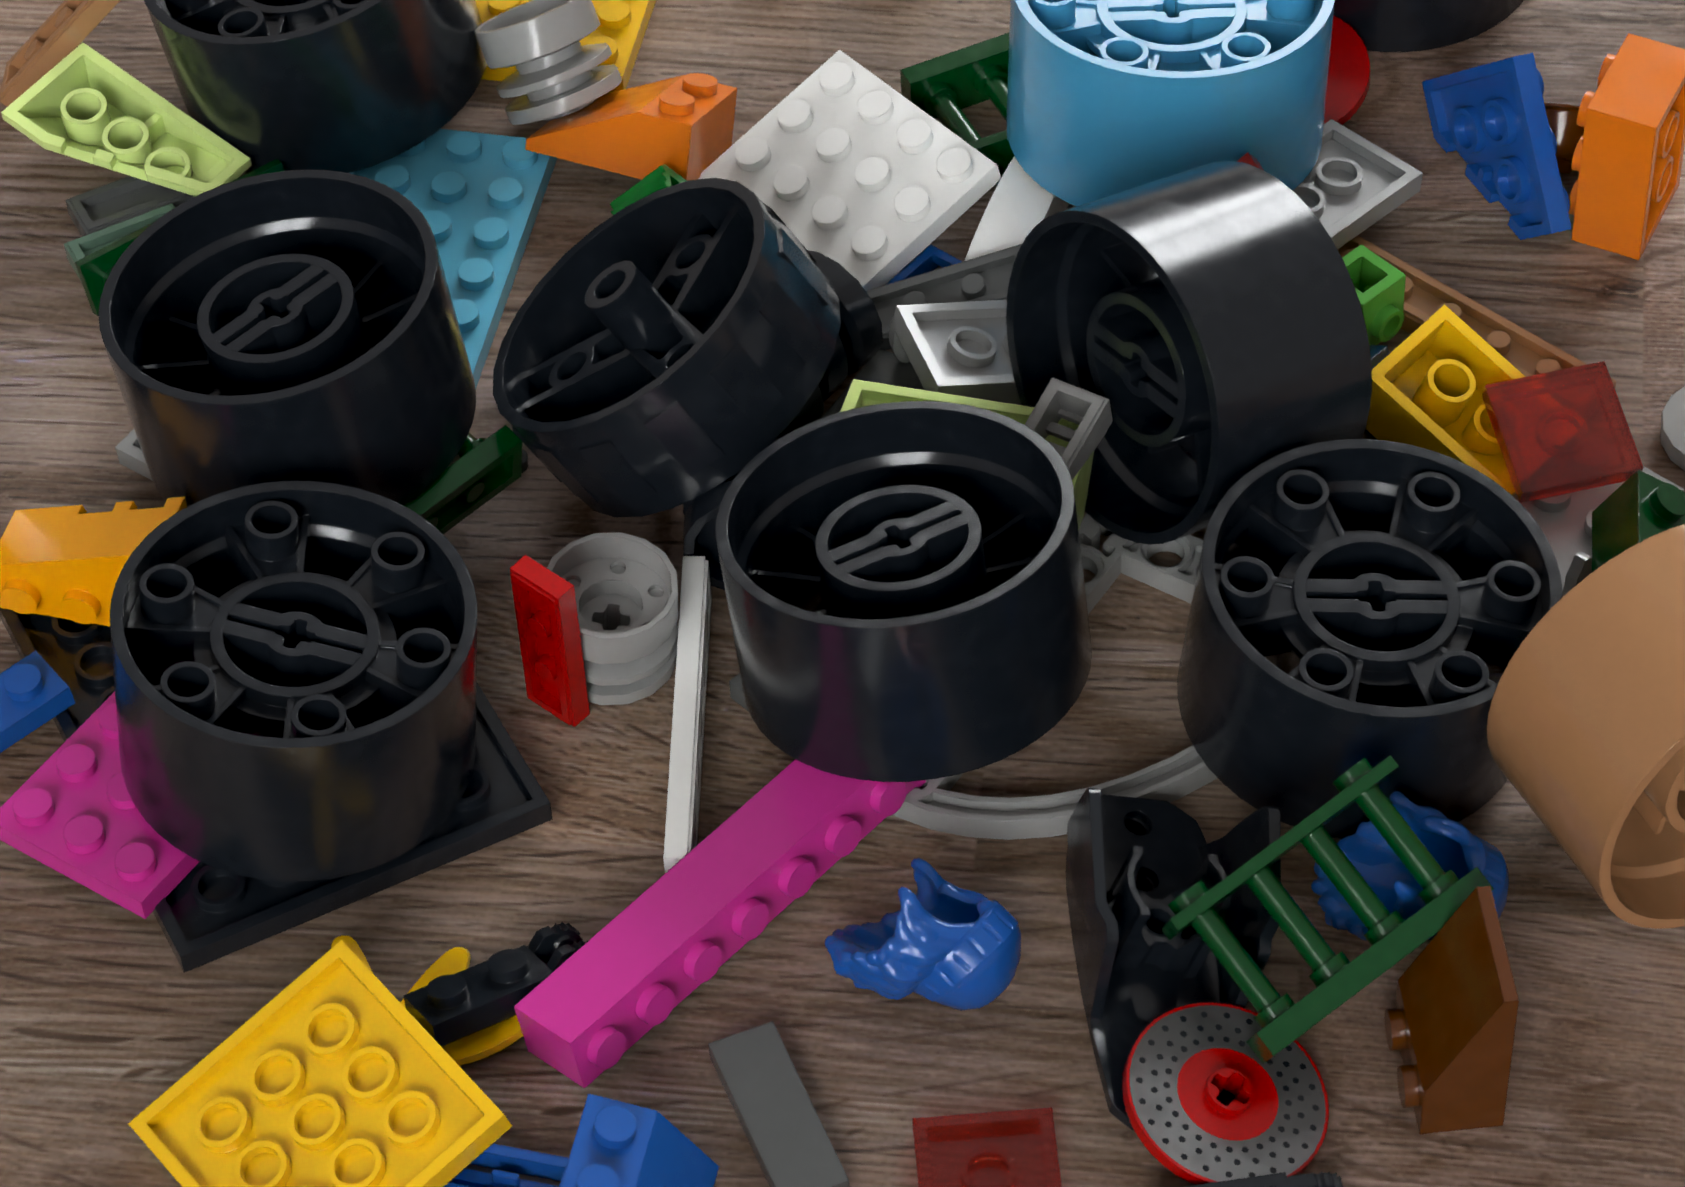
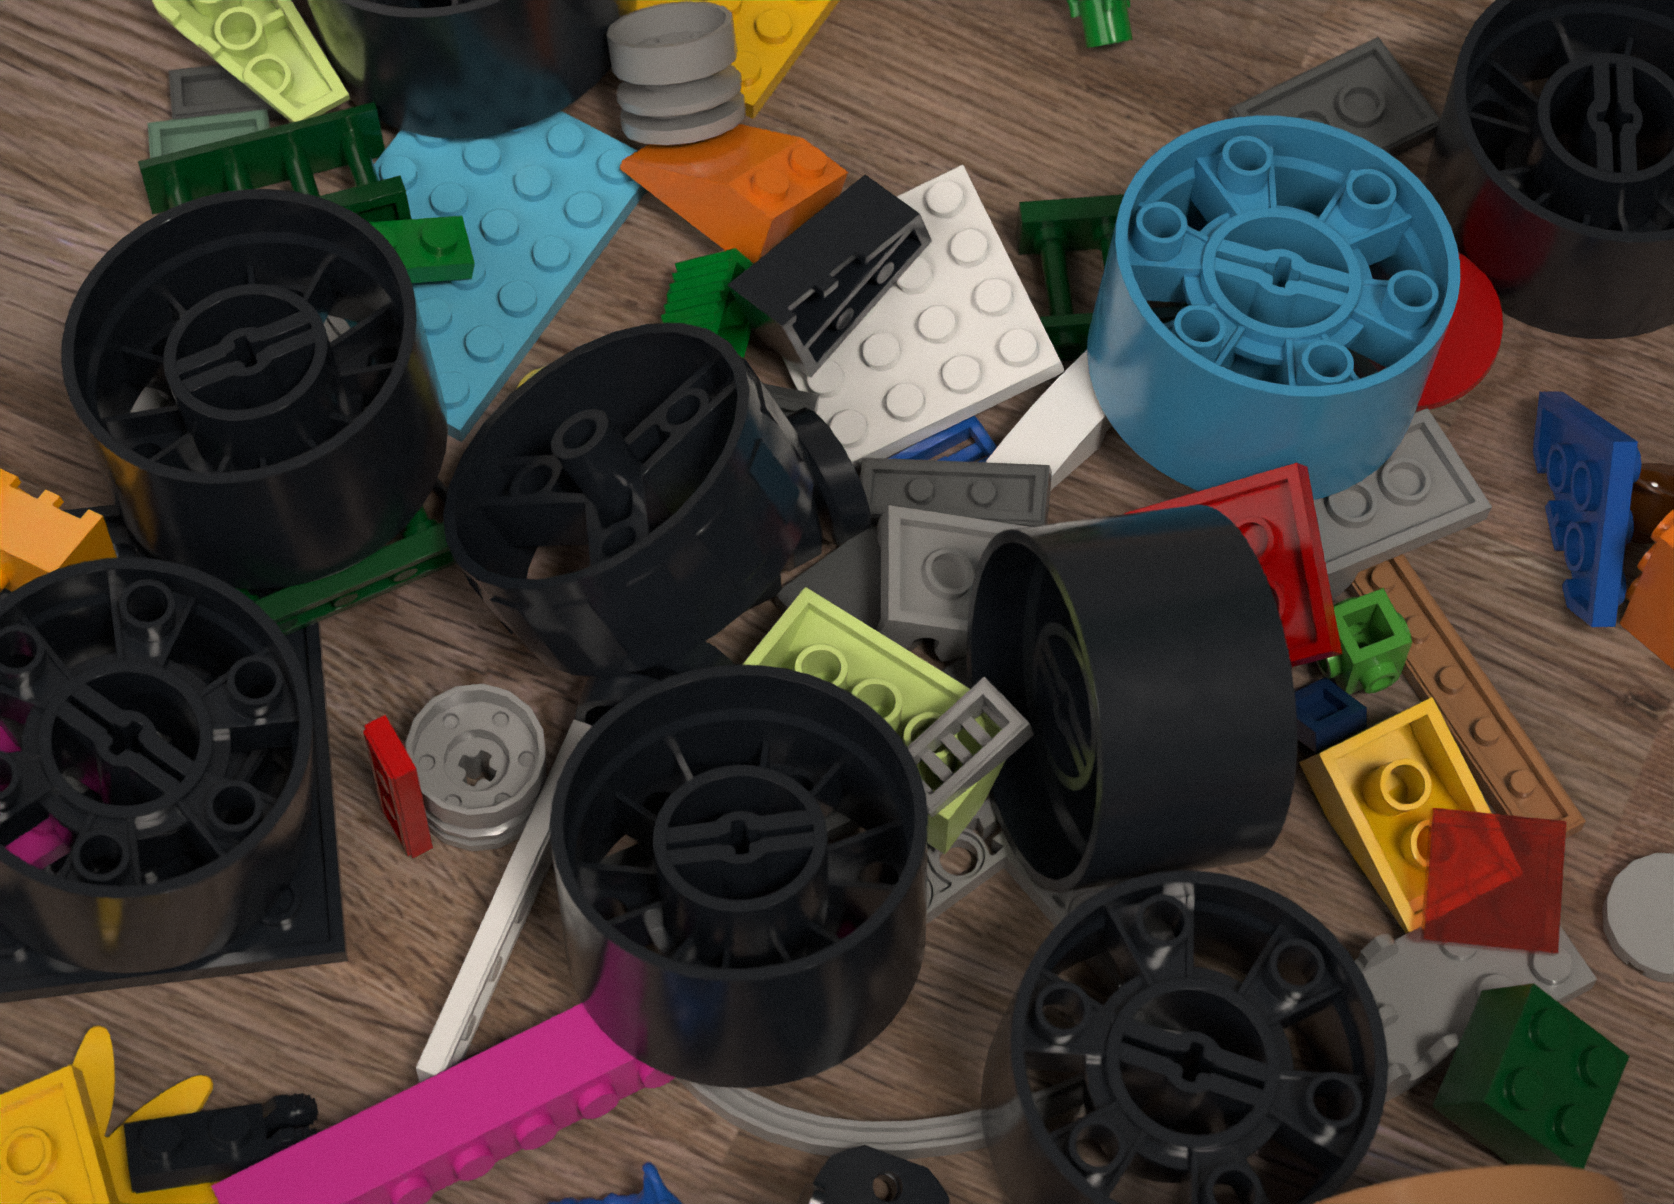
camera: 15 degrees right, 15 degrees up
(769, 137) = (830, 273): none -> black wedge

